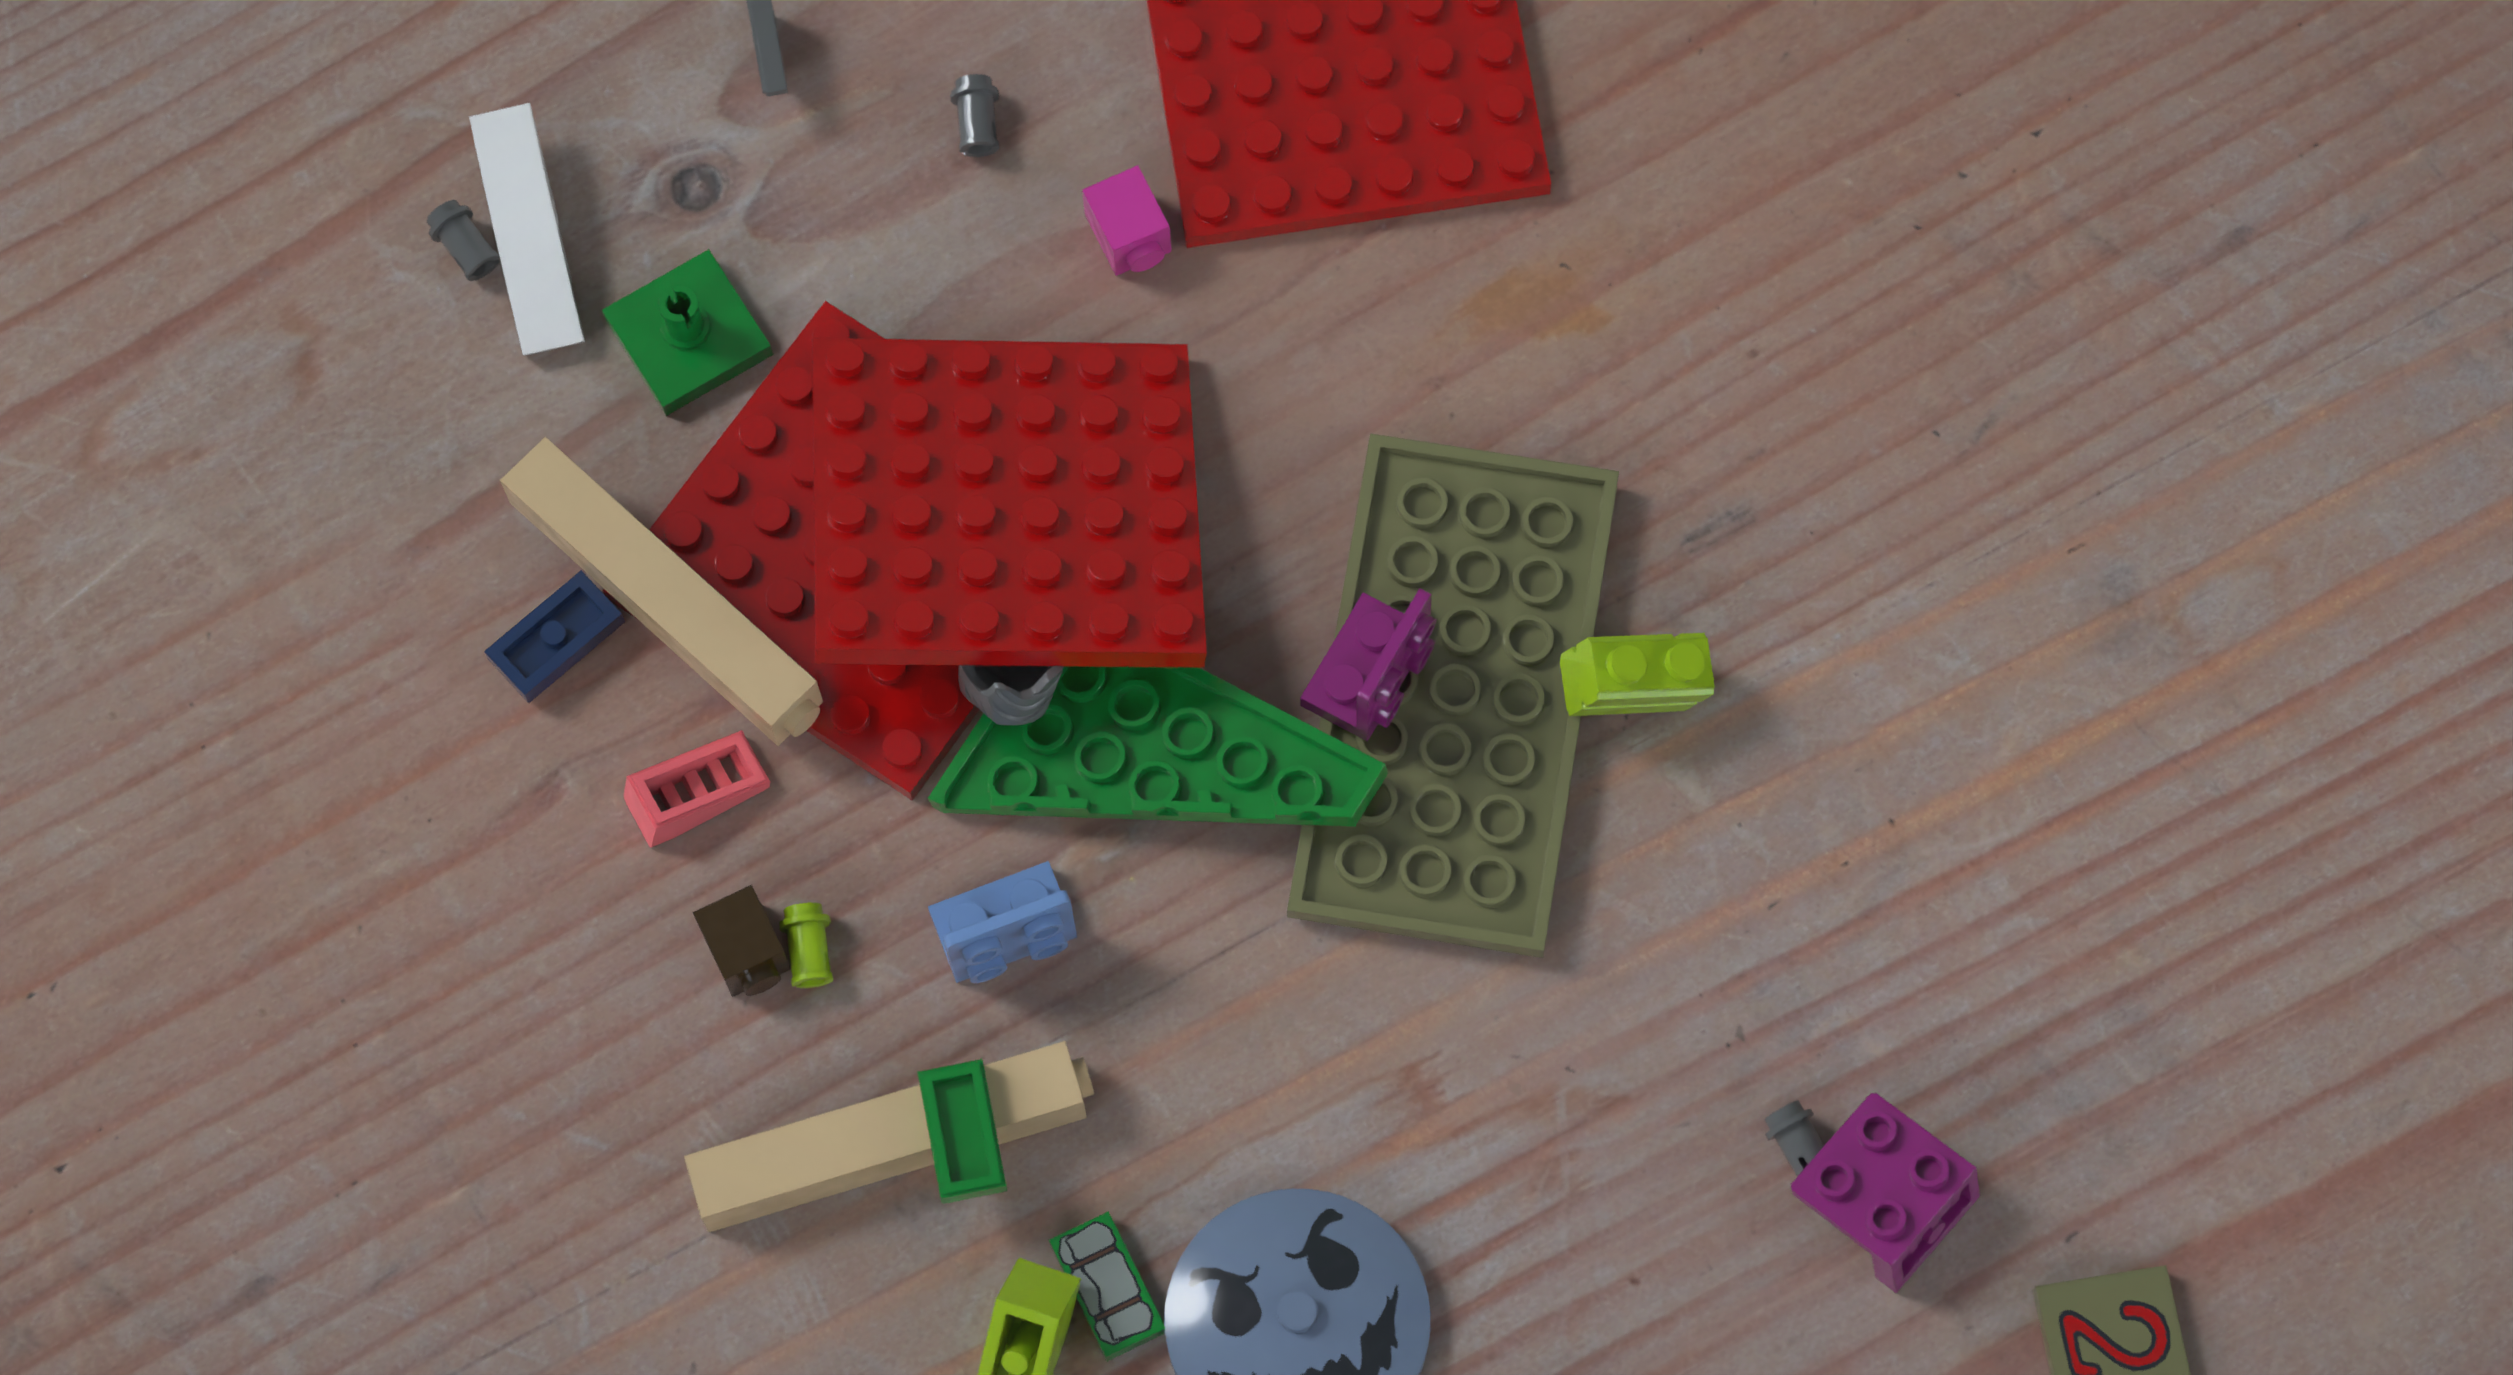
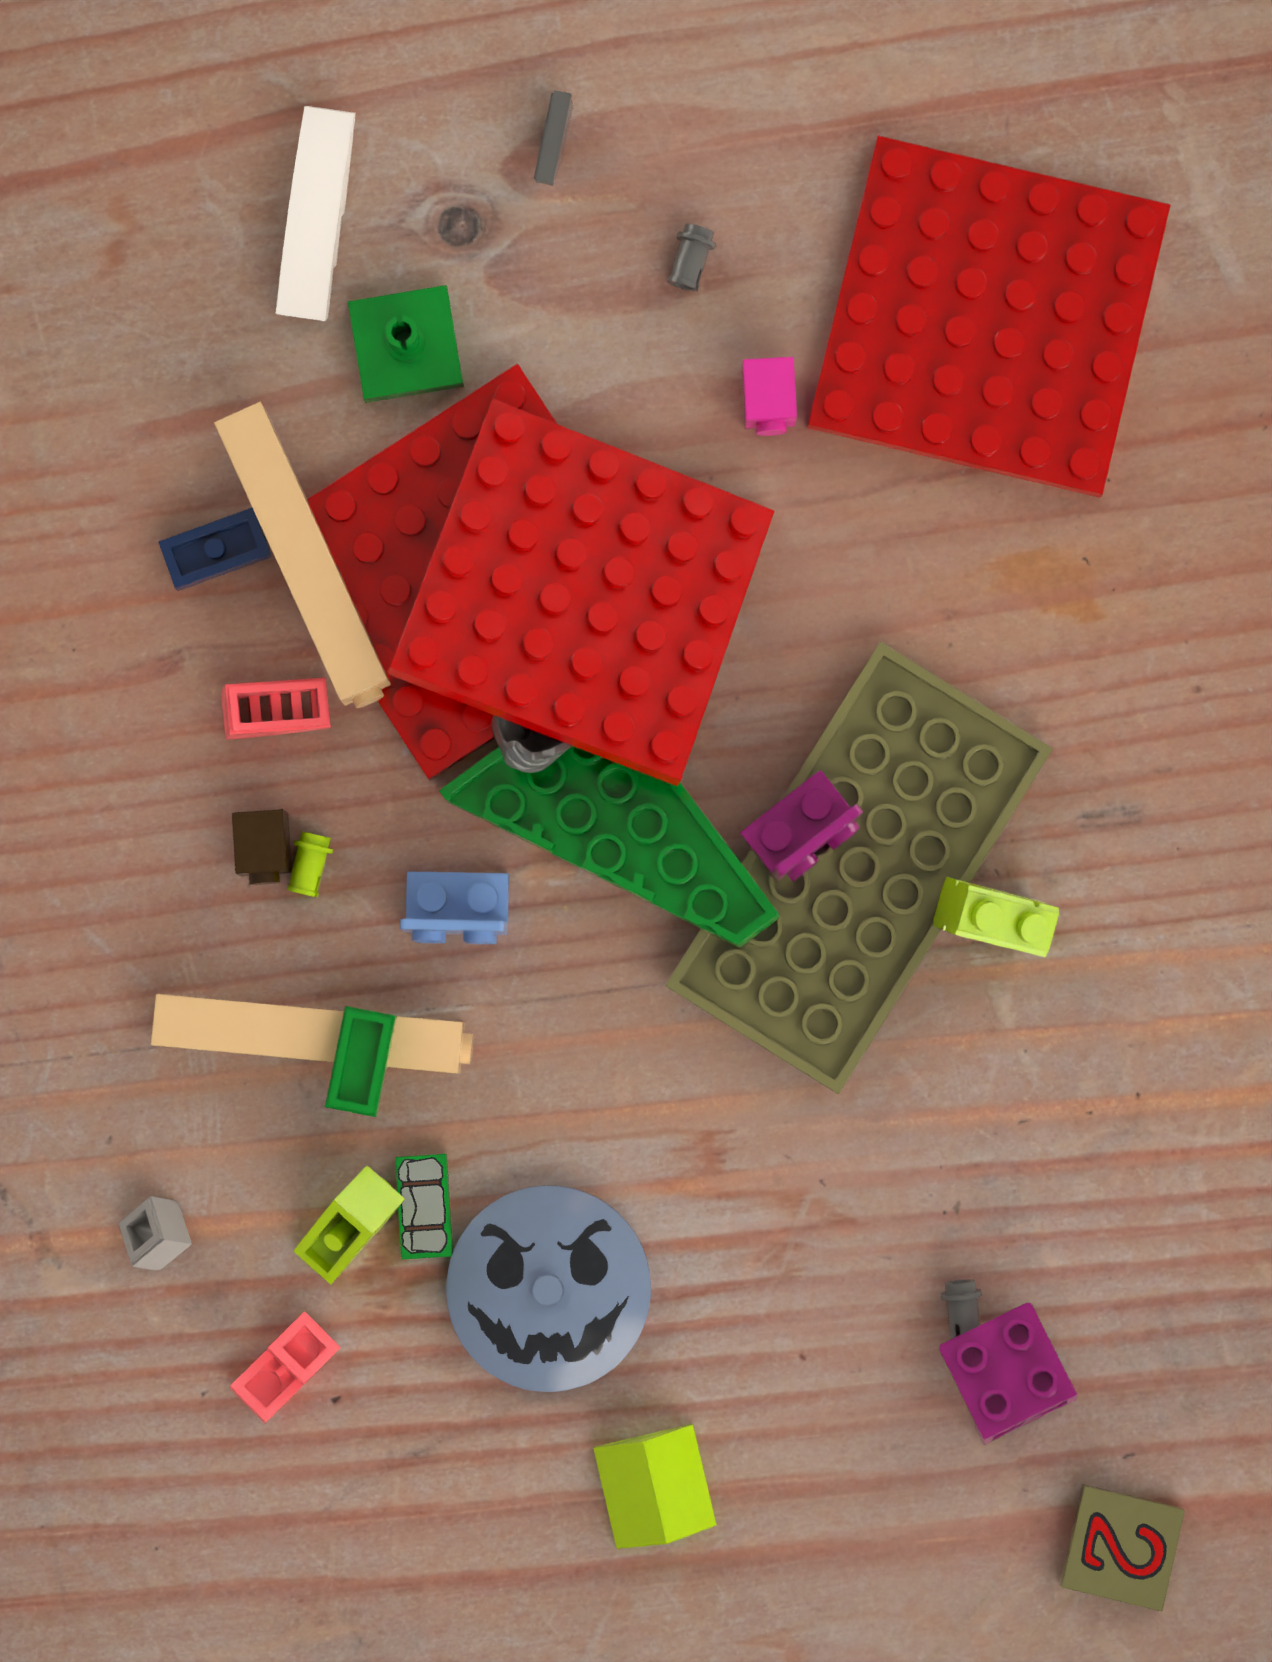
camera: 25 degrees right, 15 degrees up
(462, 239) = (265, 200): dark grey pin -> none

